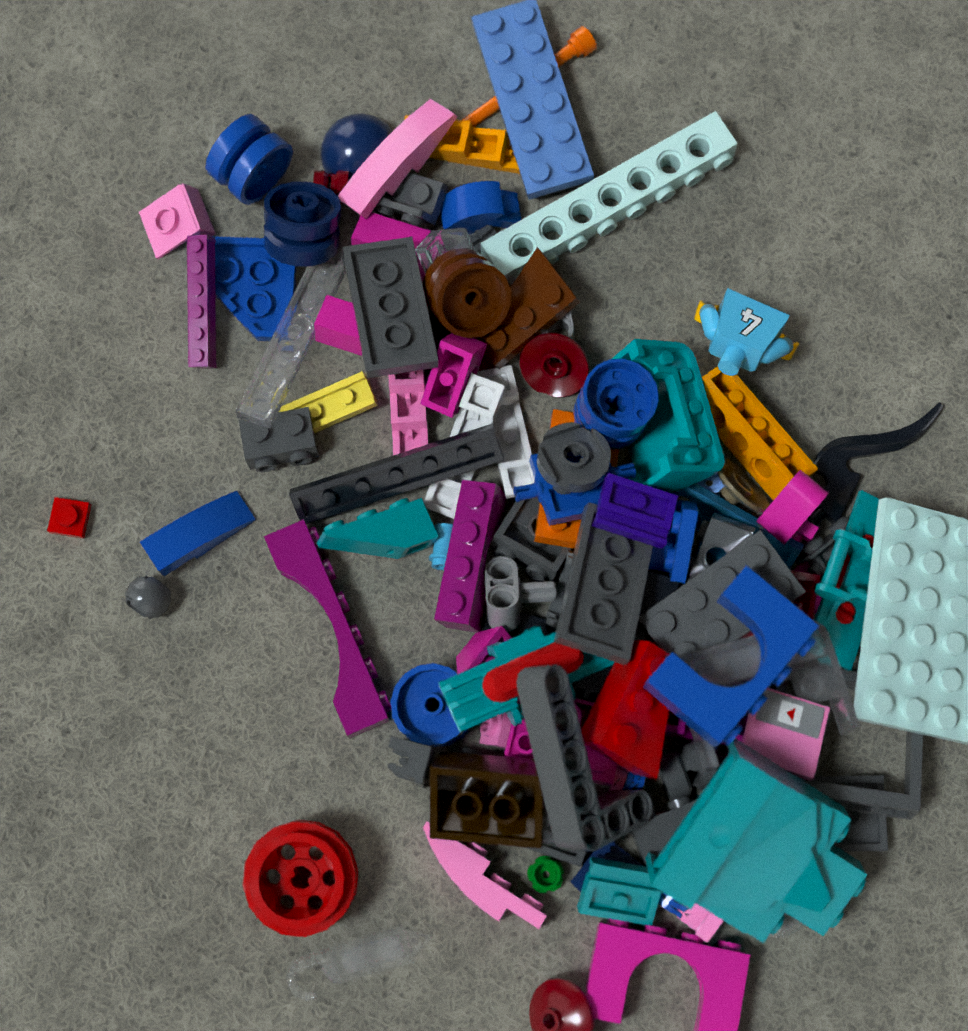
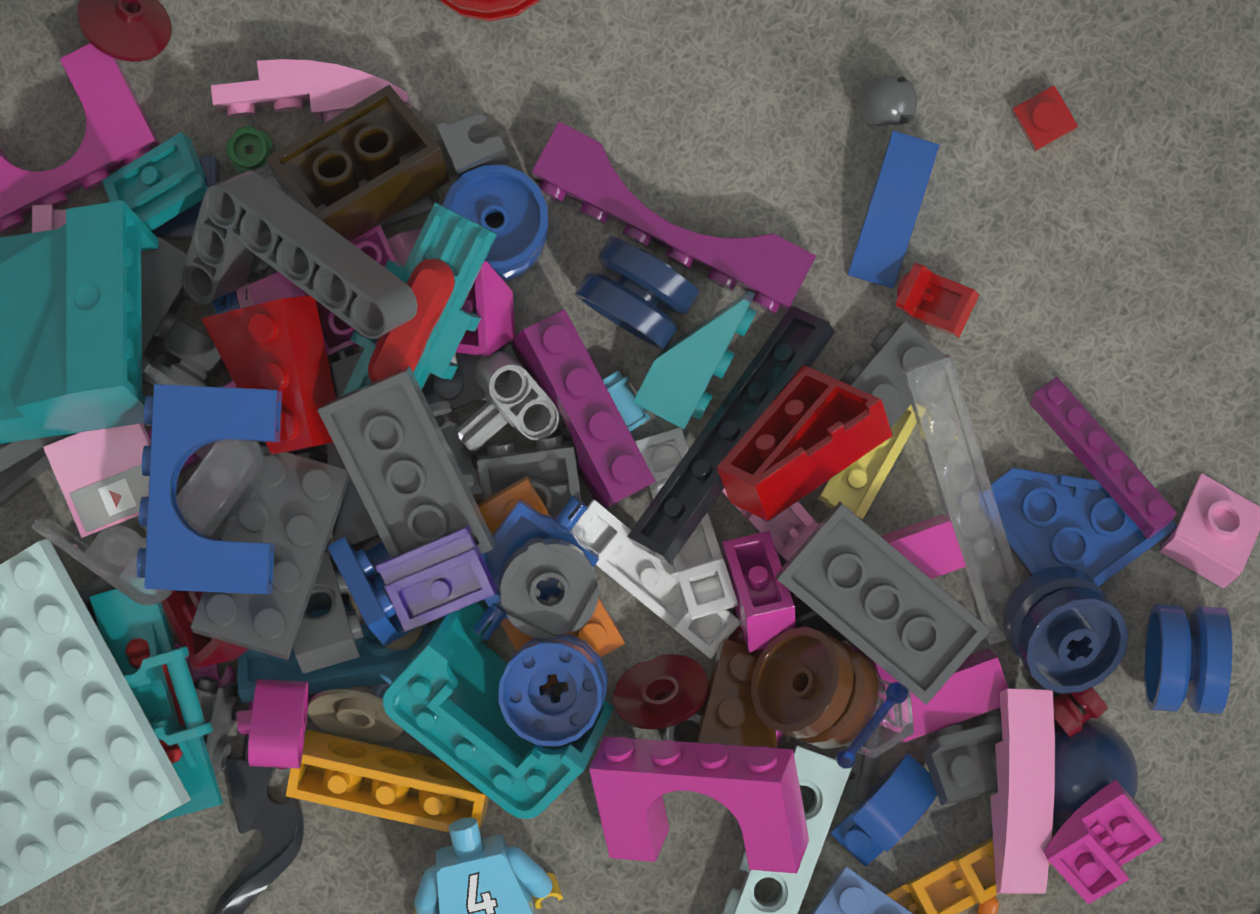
camera: 140 degrees right, 10 degrees up
(218, 461) = (935, 300): none -> red bracket
(360, 435) = (802, 442): none -> red wedge
(382, 596) = (641, 286): none -> dark blue wheel
(388, 105) = (1100, 840): none -> dark pink slope
(423, 250) = (896, 694): none -> clear blue hinge
(546, 262) = (751, 782): none -> dark pink arch

